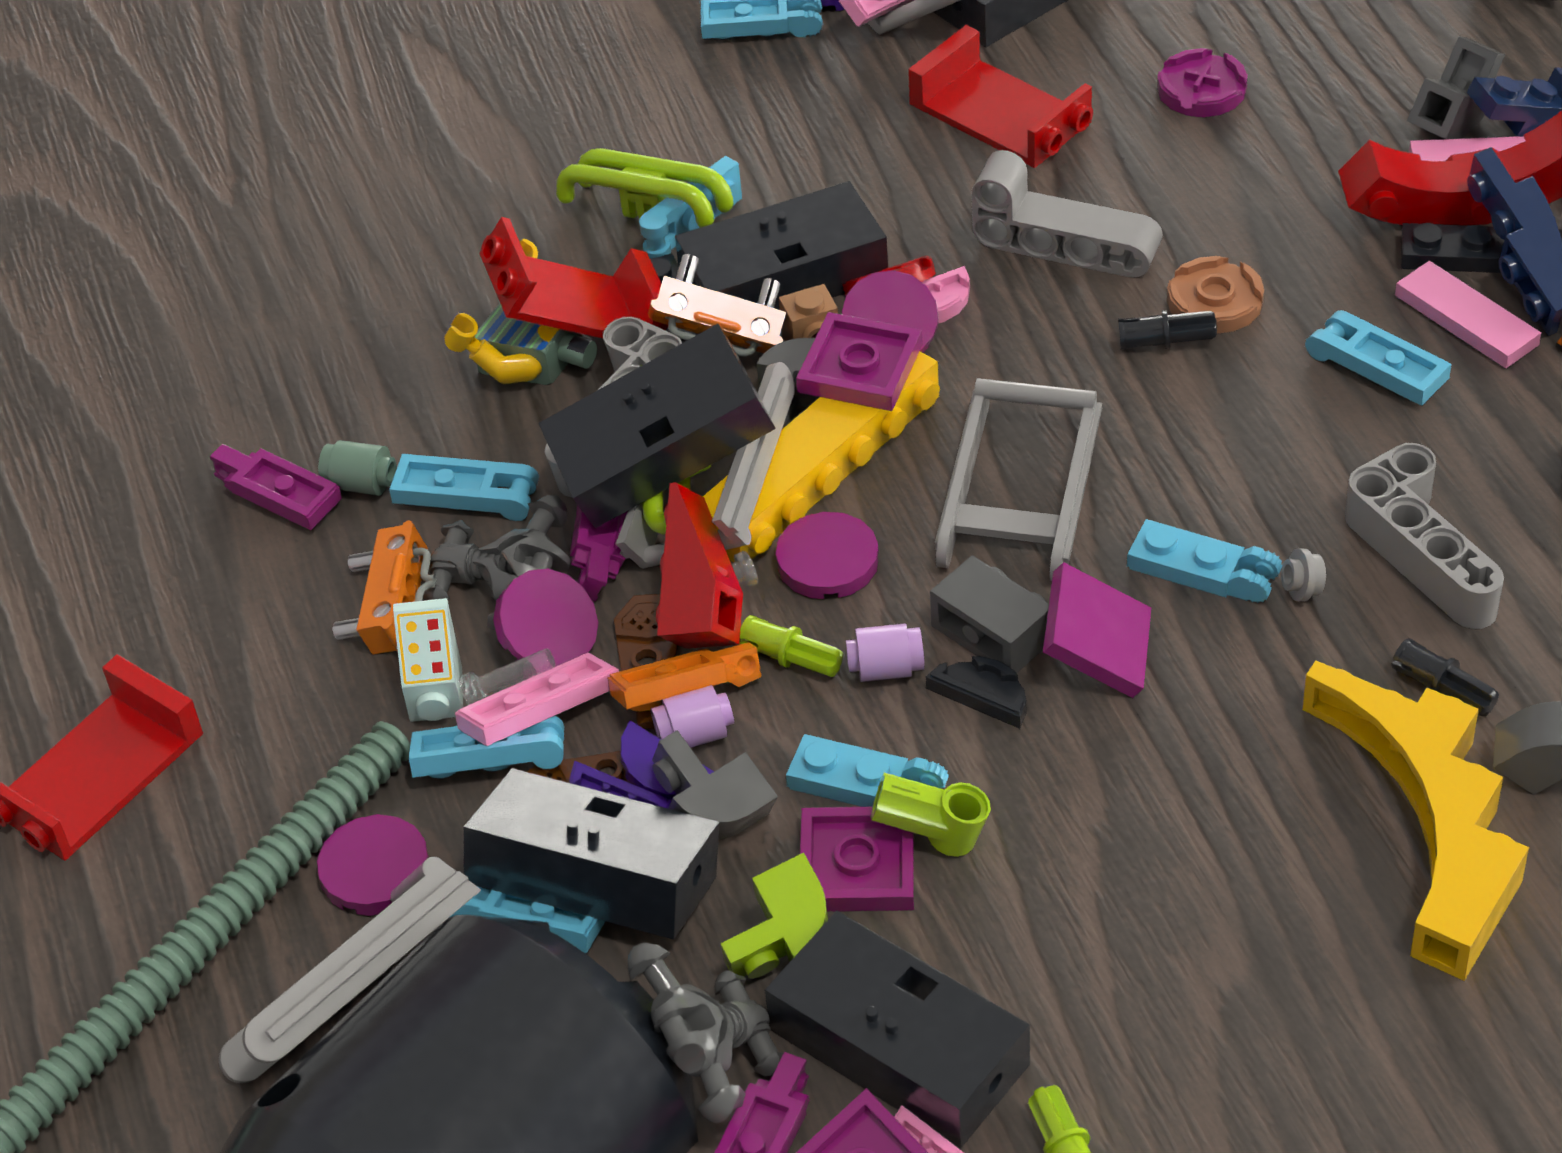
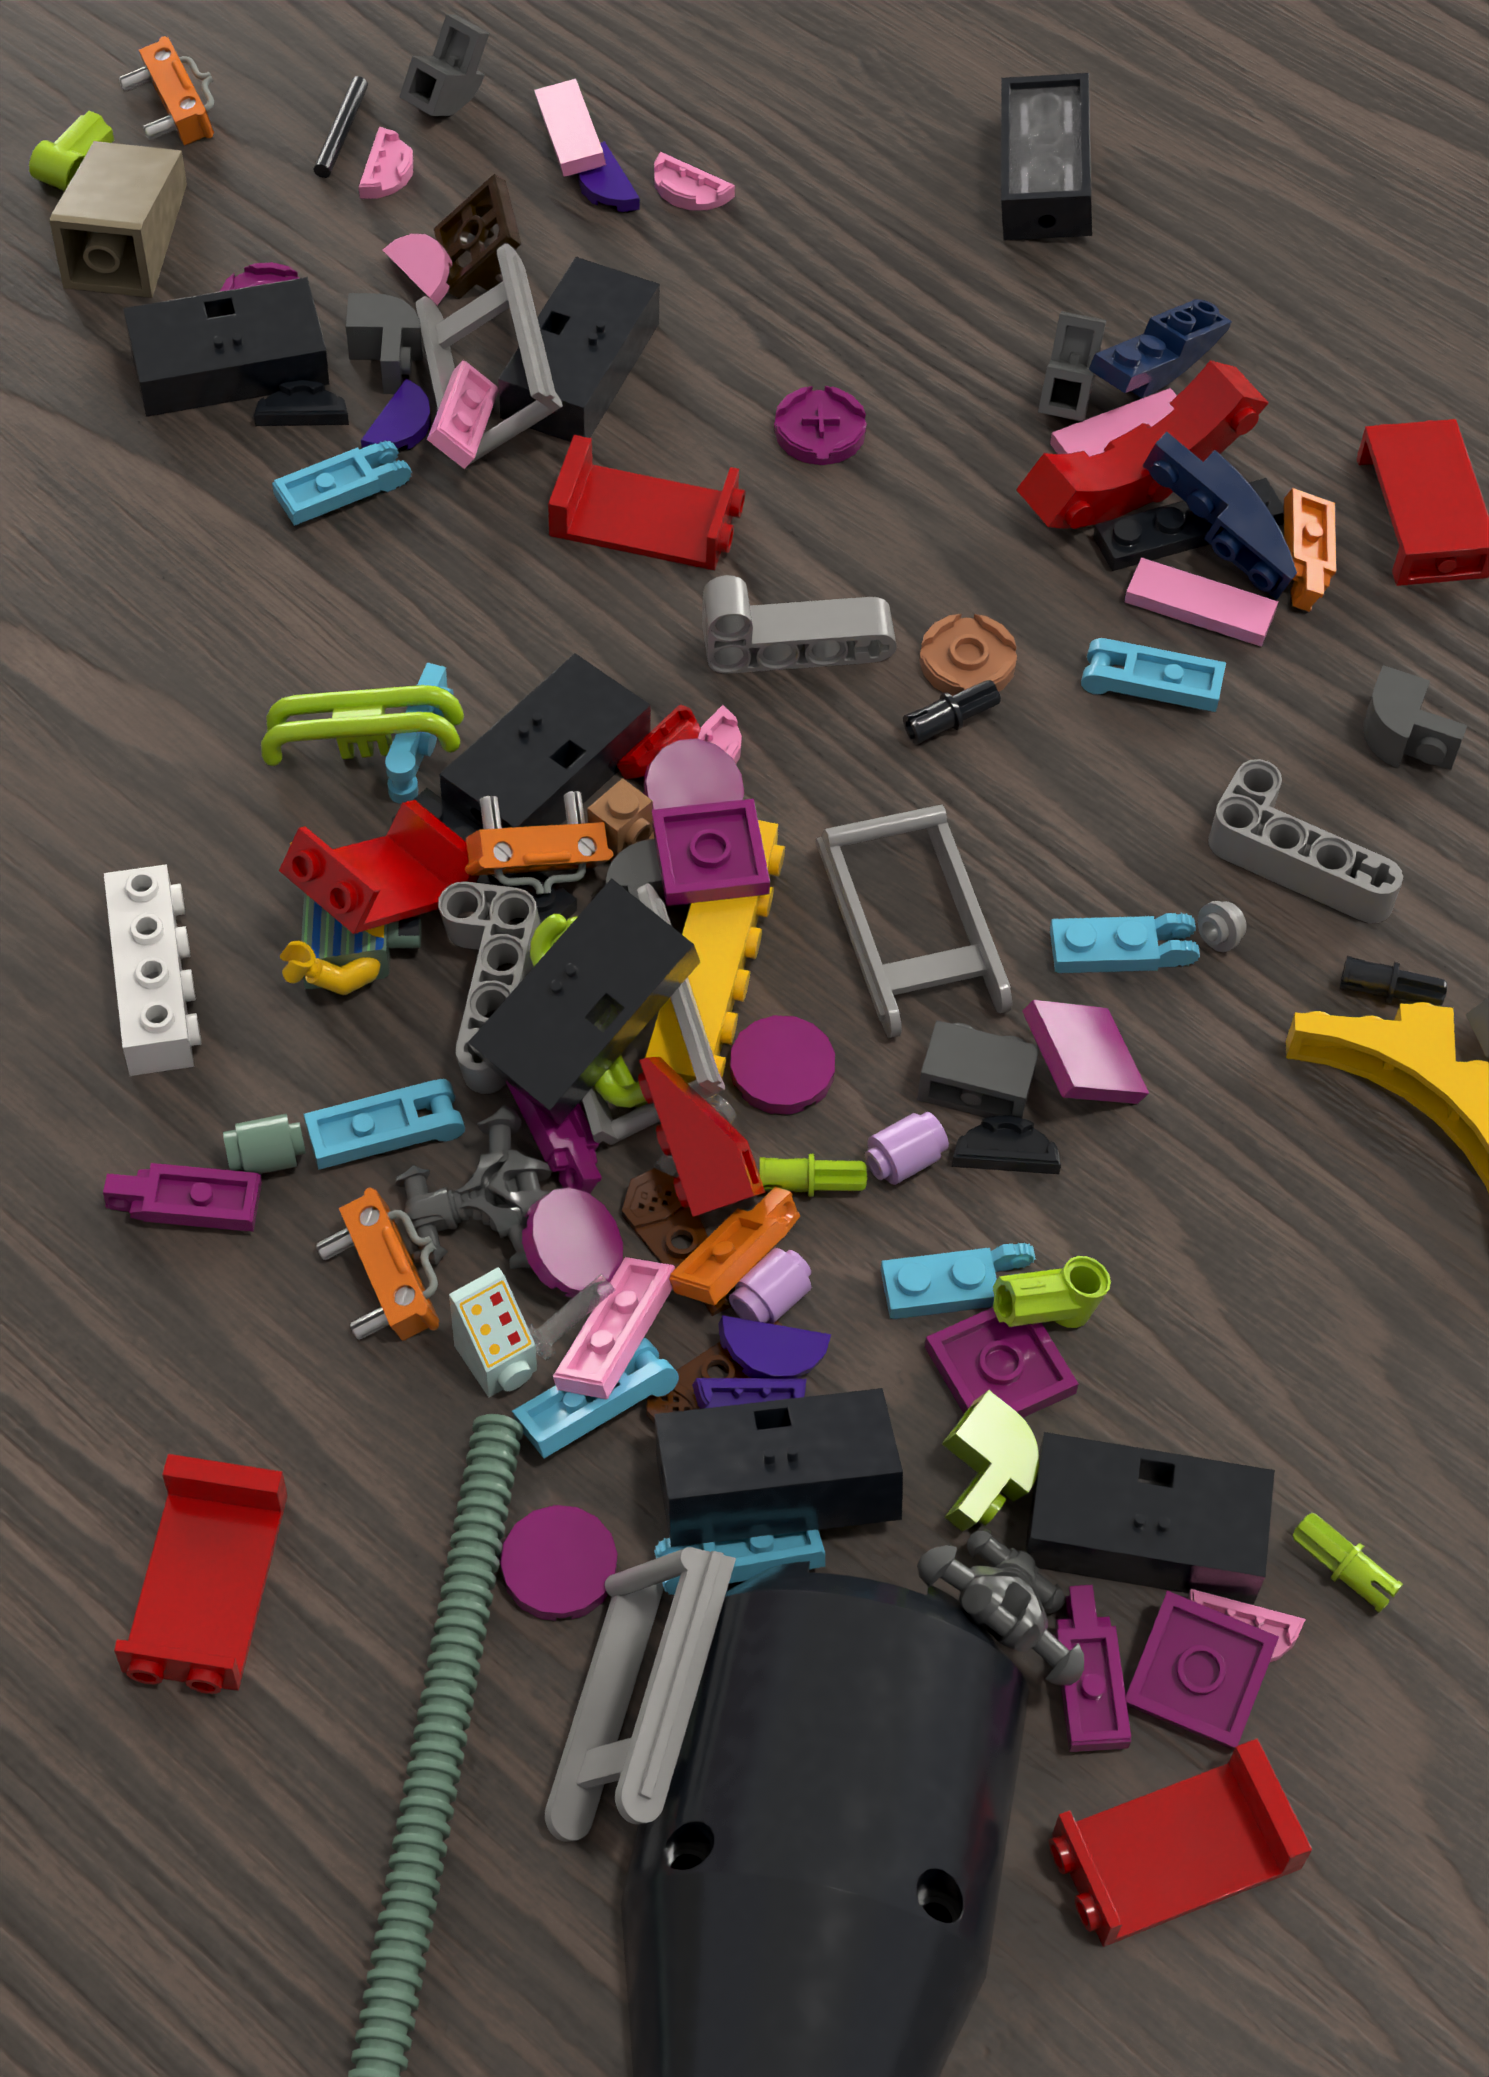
camera: 35 degrees left, 10 degrees up
(359, 314) = (149, 970): none -> white brick
(731, 795) = (856, 1360): dark grey brick -> none

